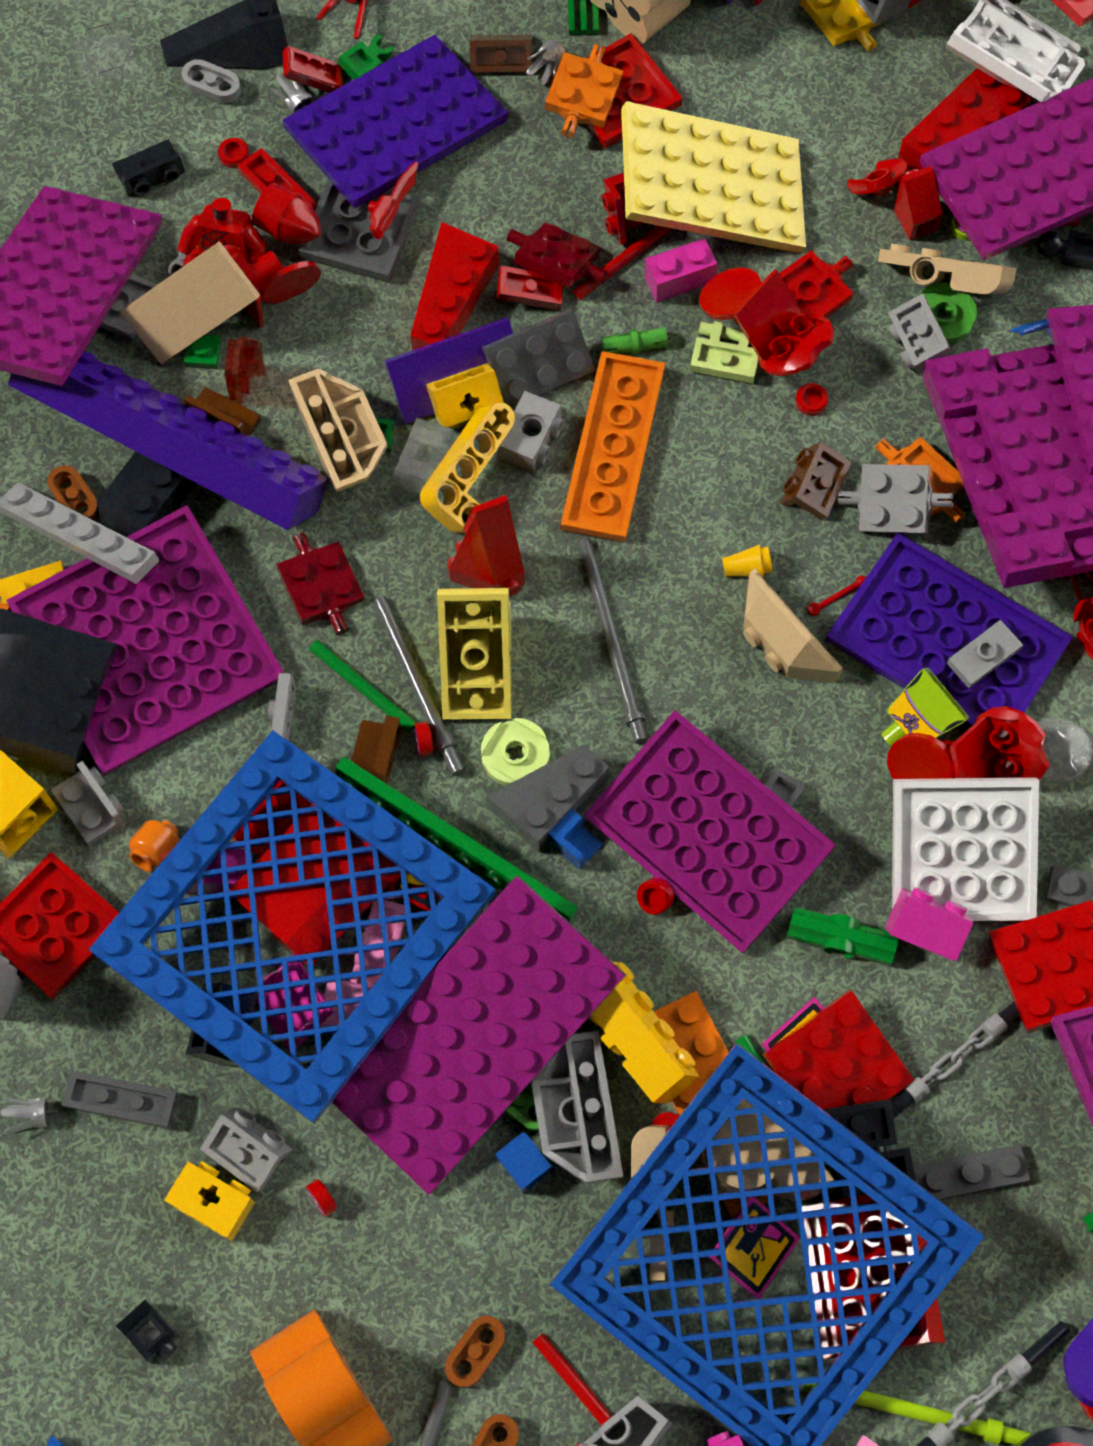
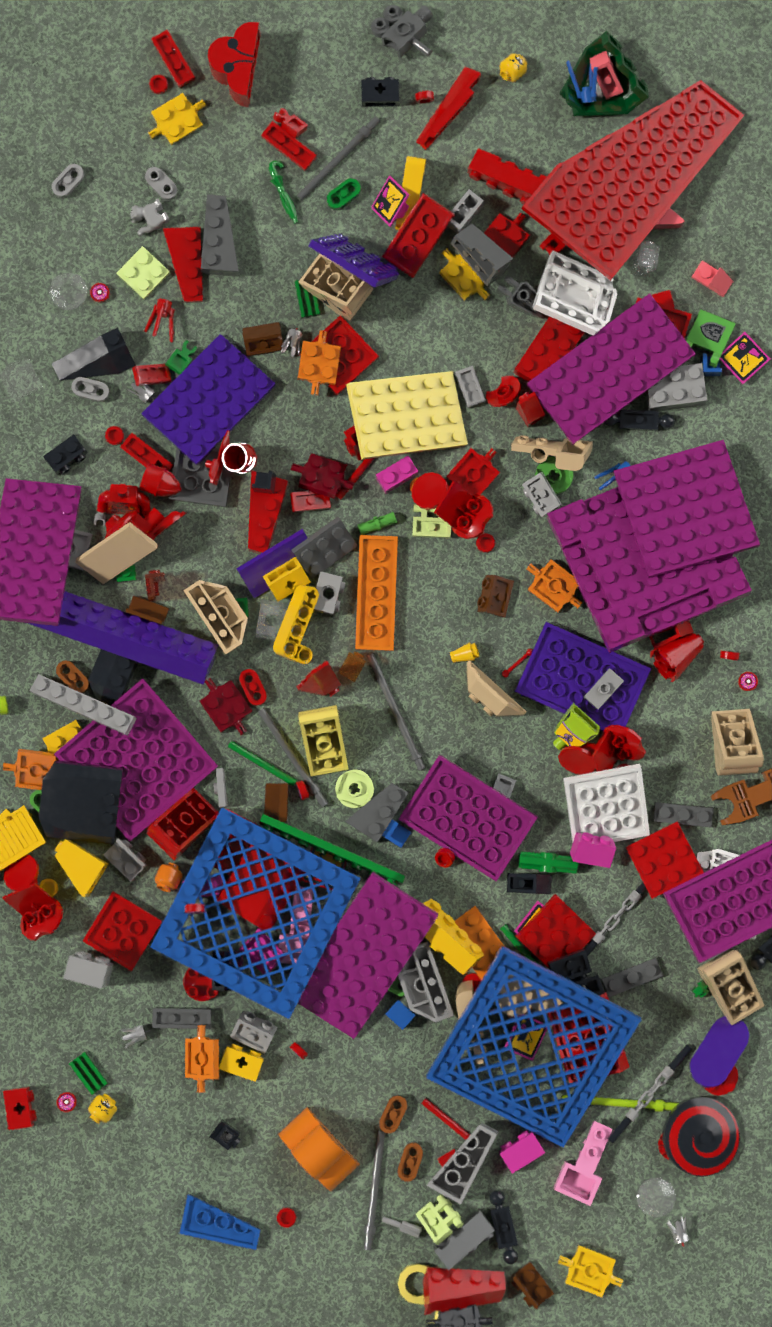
camera: 15 degrees left, 15 degrees up
(138, 1177) = (201, 1058): none -> orange plate
(164, 1044) = (198, 986): none -> red dish
(182, 890) = (194, 909): none -> red tile
(192, 754) = (182, 824): none -> red brick
(373, 561) = (253, 687): none -> red plate
(426, 199) = (239, 458): none -> red helmet
(459, 237) = (264, 482): none -> black panel
(551, 551) = (352, 666): none -> clear orange bracket
(803, 966) = (529, 883): none -> black slope
(823, 165) = (470, 386): none -> light grey plate
(895, 498) = (541, 602): light grey plate -> none
(927, 50) = (521, 297): none -> dark grey hinge
(1066, 750) = (653, 732): clear dish -> none

